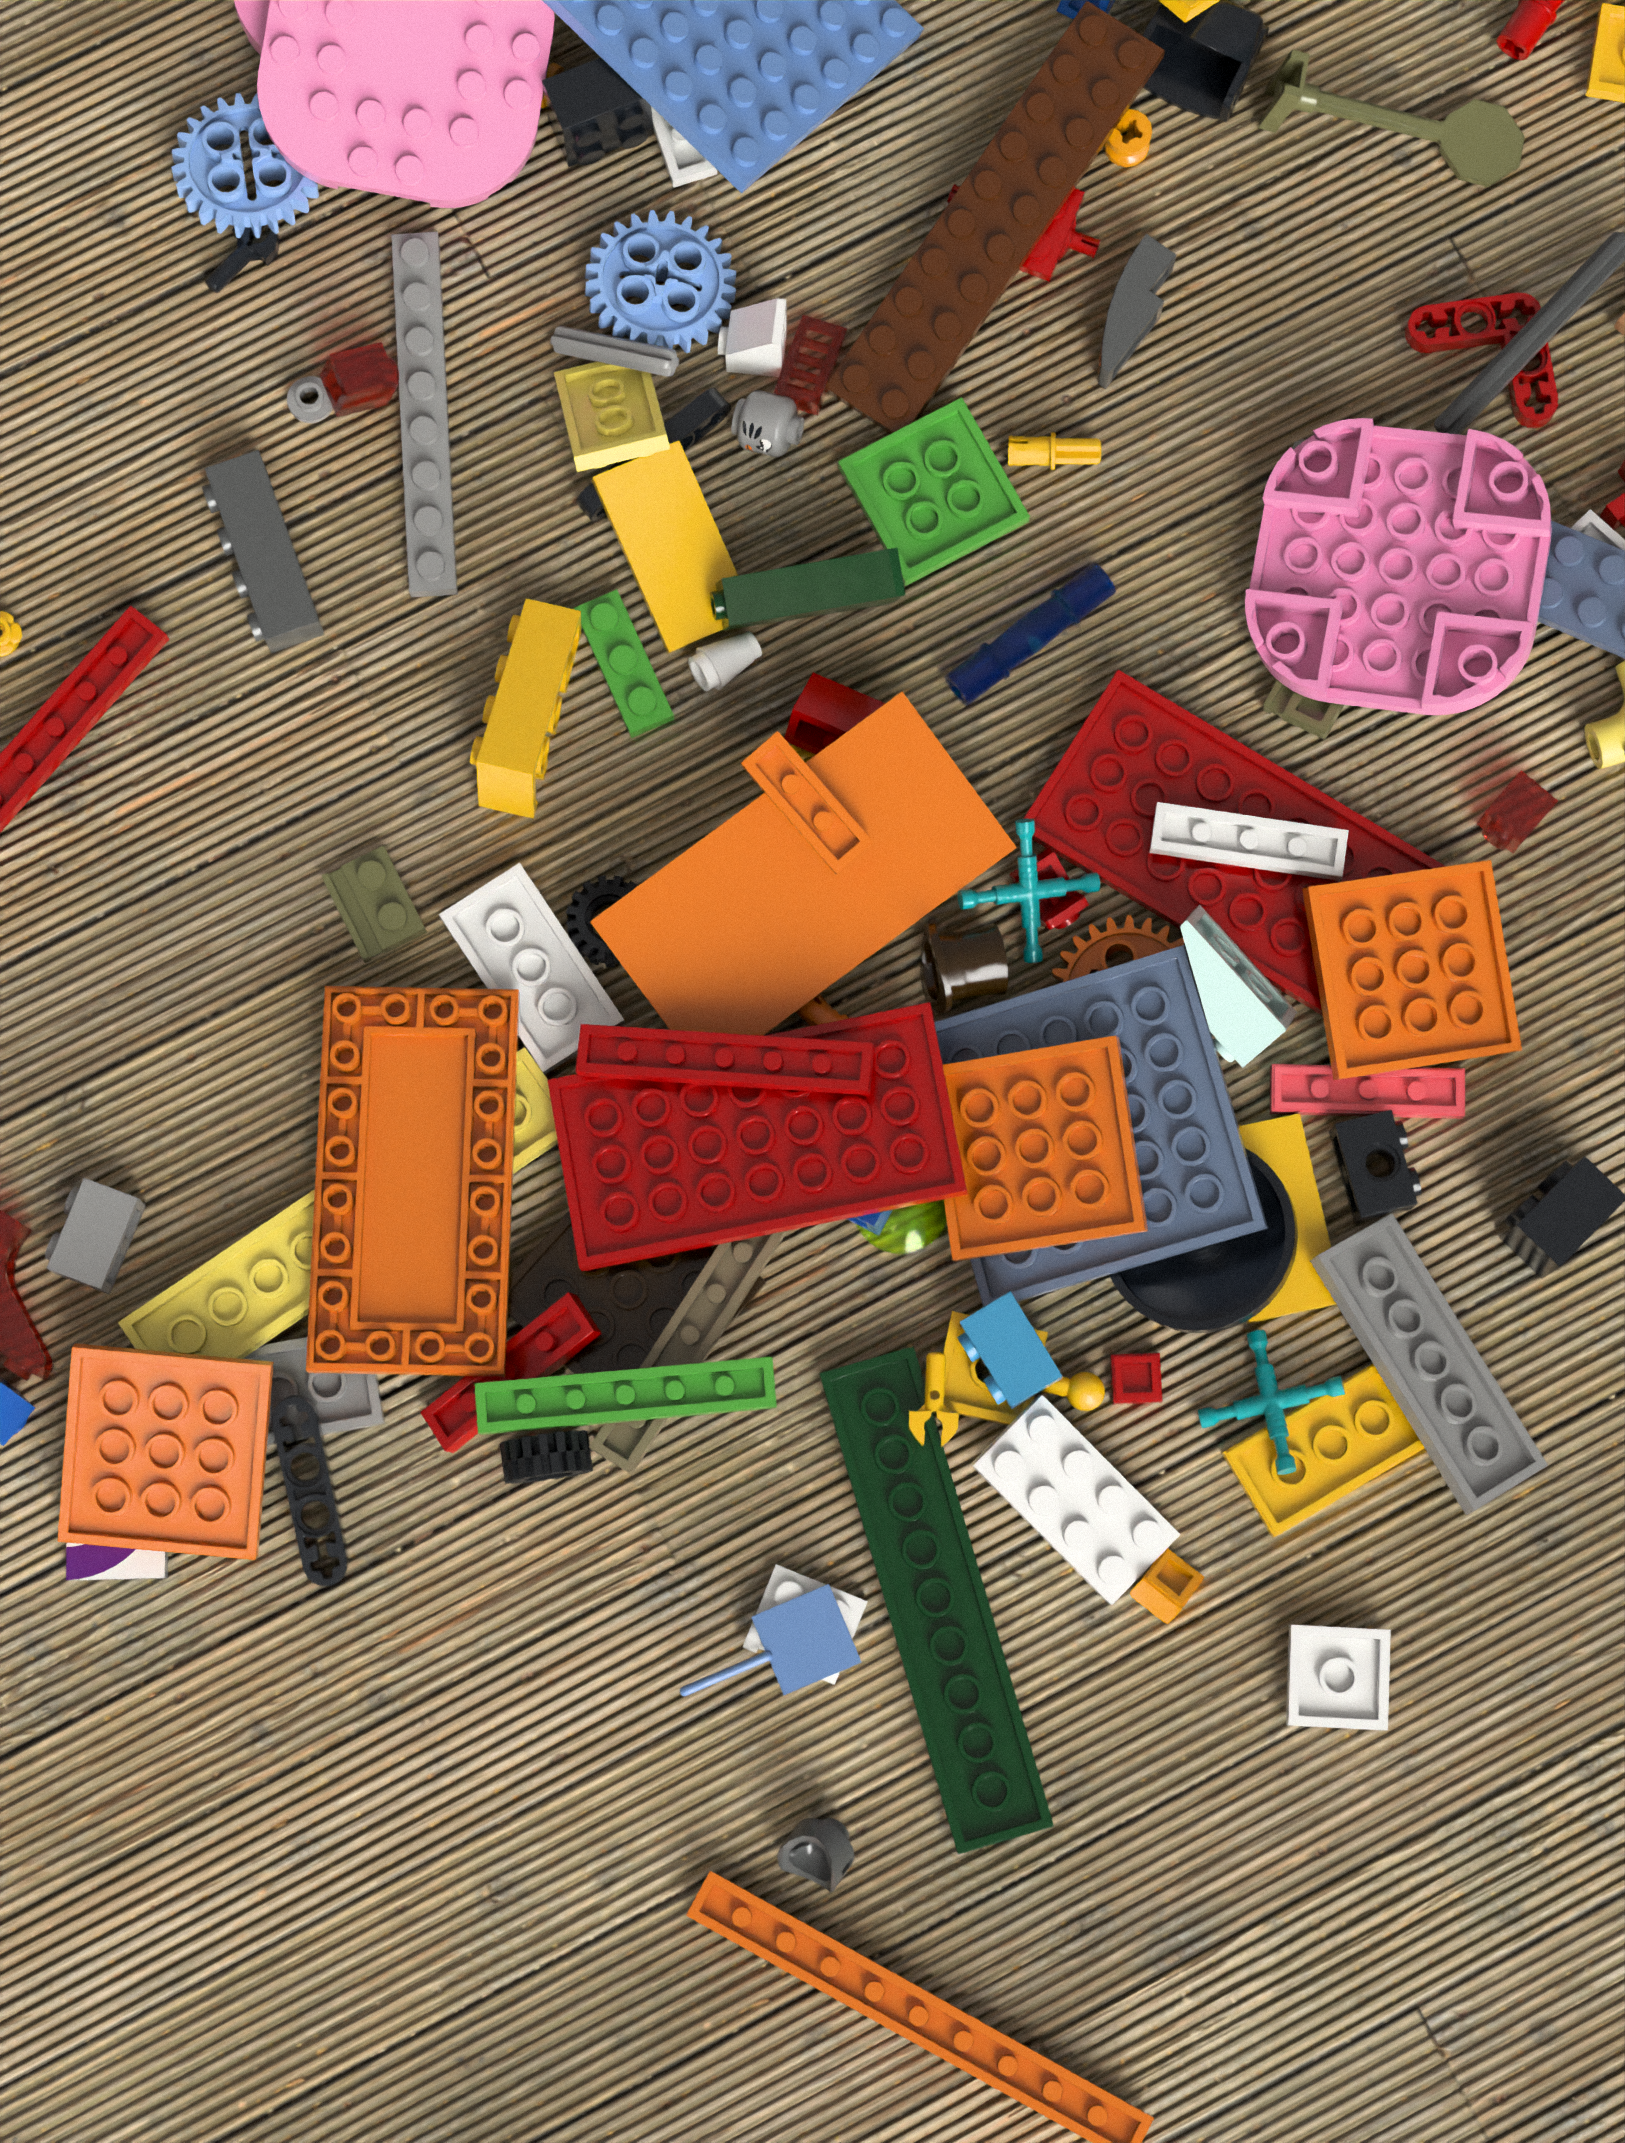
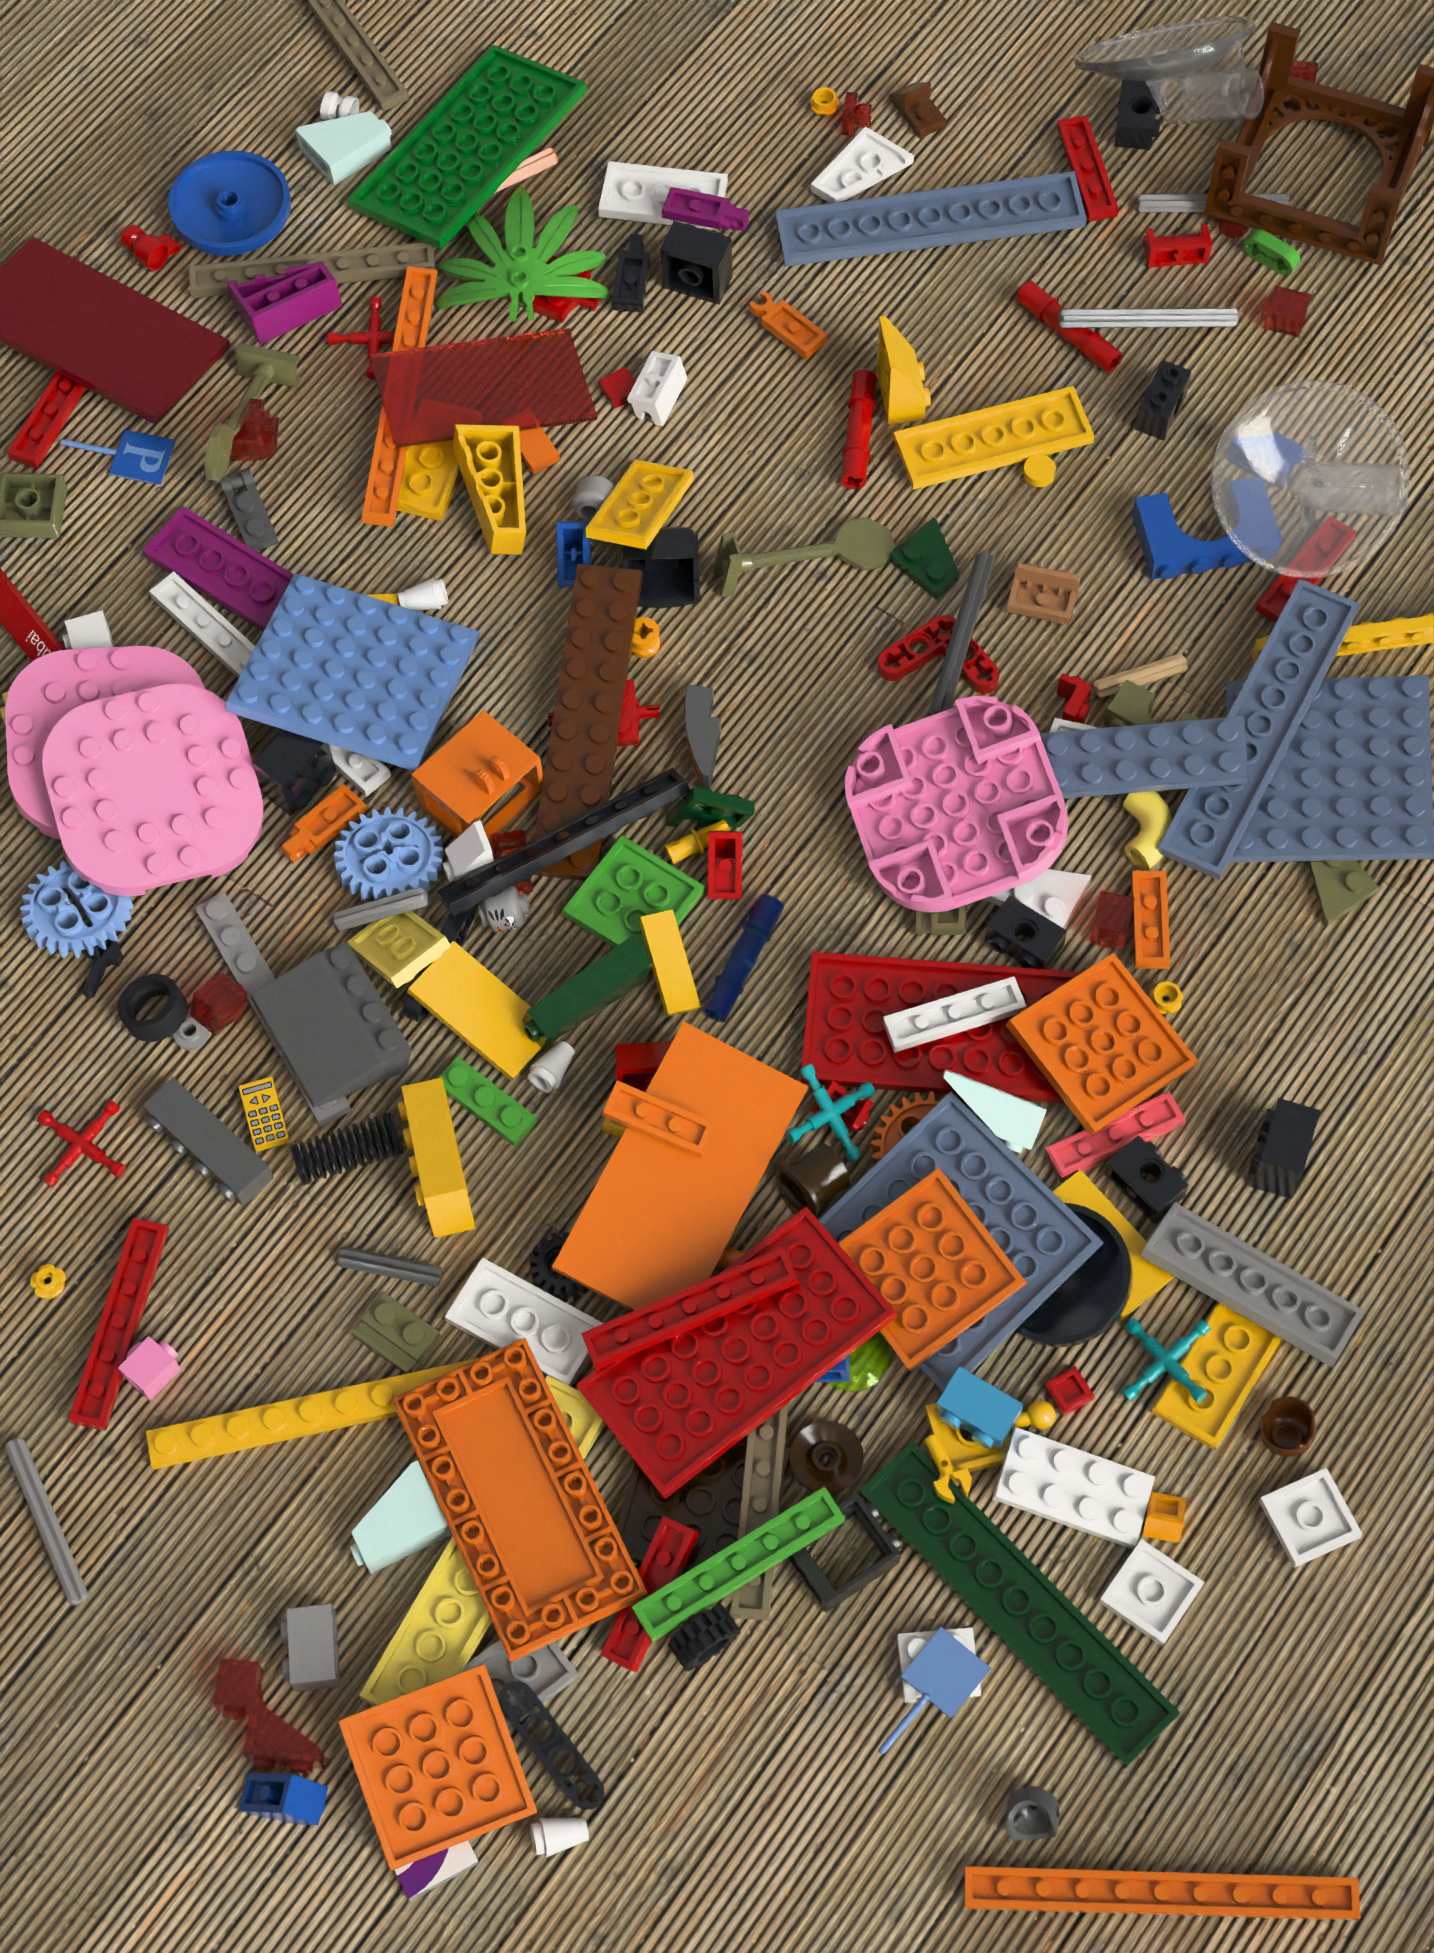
camera: 25 degrees left, 15 degrees down
(66, 801) = (150, 1366): none -> bright pink brick
(116, 477) = (81, 1143): none -> red piece
(200, 944) = (284, 1419): none -> yellow plate
(263, 1138) = (400, 1522): none -> light aqua slope
(265, 318) = (141, 991): none -> black tyre
(269, 1594) = (557, 1834): none -> white cone
(350, 547) = (264, 1114): none -> yellow tile
(363, 632) = (390, 1130): none -> black piece
(407, 816) = (389, 1266): none -> dark grey axle
(480, 477) = (332, 1026): none -> dark grey slope
(602, 198) = (323, 823): none -> orange hinge
(796, 1288) = (831, 1440): none -> dark brown dish
(817, 229) = (474, 773): none -> orange piece
(819, 1449) = (884, 1541): none -> pearl dark grey window
(882, 374) = (563, 841): none -> black plate
(934, 597) = (669, 963): none -> yellow tile
(1068, 502) = (725, 864): none -> red slope
(1092, 417) = (710, 808): none -> dark green wing
(1100, 1668) = (1151, 1592): none -> white plate
(1371, 1559) = (1288, 1427): none -> reddish brown hair
(1398, 753) = (1018, 919): none -> black brick
(1453, 745) = (1050, 894): none -> white wing
(1531, 935) = (1169, 990): none -> yellow plate
(1550, 204) = (927, 560): none -> dark green wing
(1566, 835) = (1150, 920): none -> orange plate

